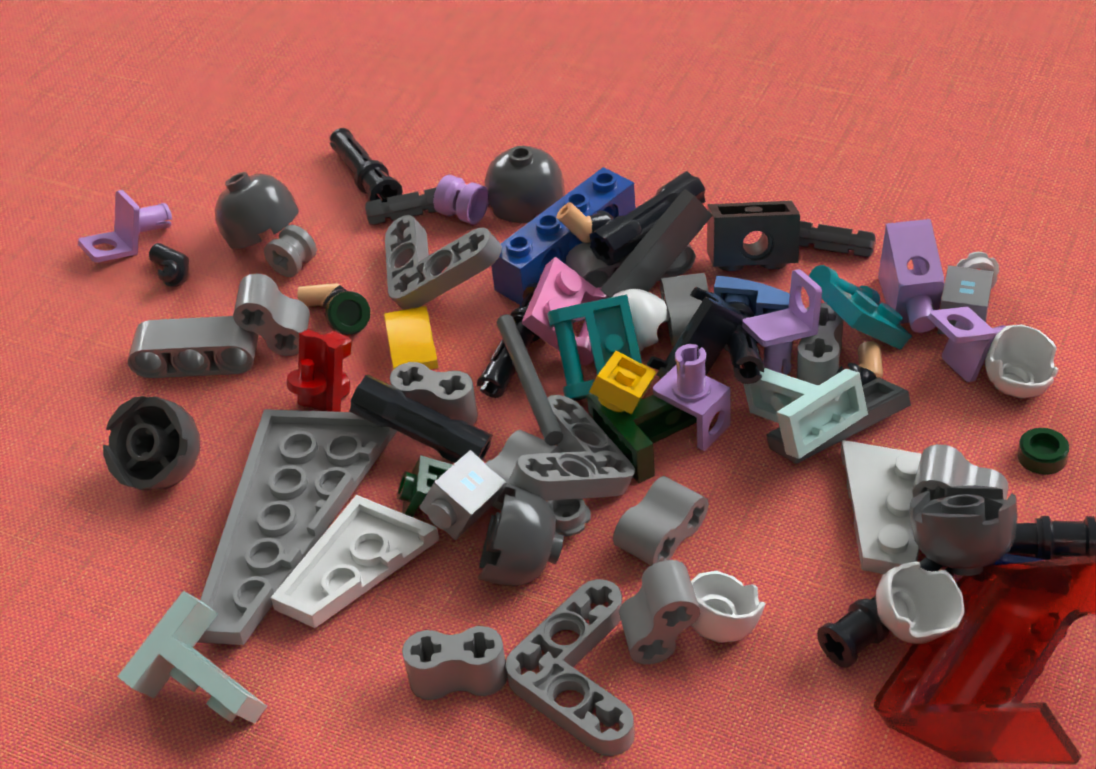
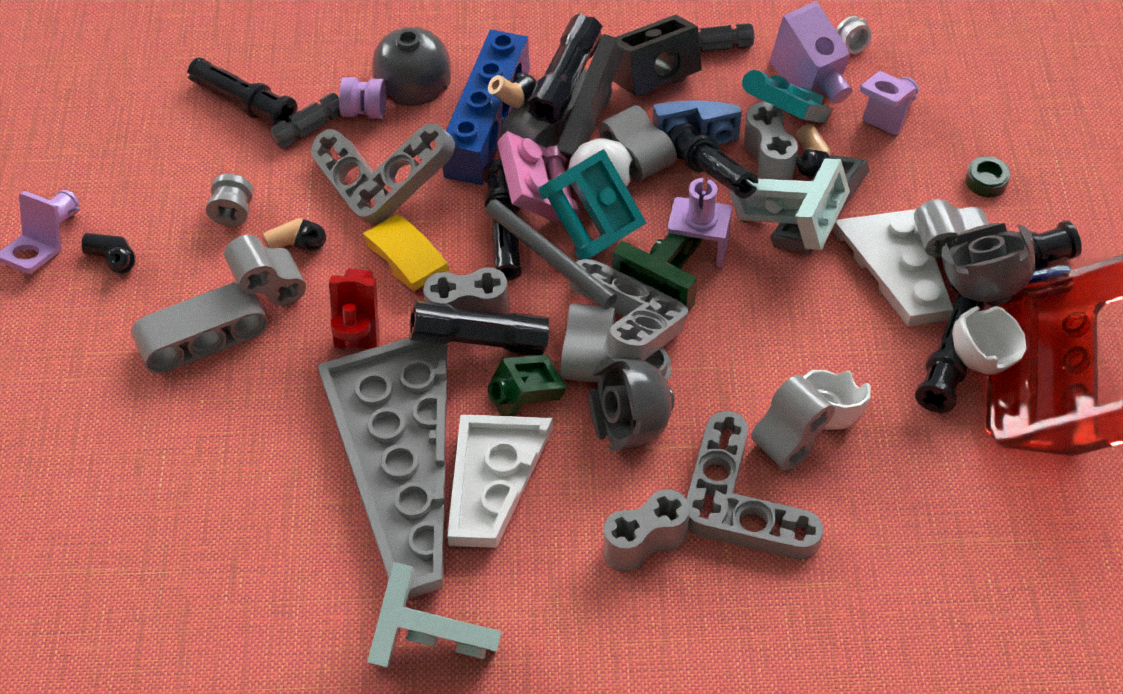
camera: 30 degrees left, 10 degrees up
(151, 443) = (239, 436): dark grey cylinder -> none
(252, 207) = (171, 170): dark grey cylinder -> none
(347, 312) = (329, 244): dark green tile -> none
(462, 495) = (566, 381): brick -> none
(622, 383) = (643, 232): yellow plate -> none
(660, 521) = (735, 343): light grey axle -> none
(708, 329) = (675, 168): black hinge -> none
(780, 328) = (747, 128): lavender bracket -> none
(967, 289) = (865, 60): light grey brick -> none
(1021, 361) = (937, 106): white hair -> none

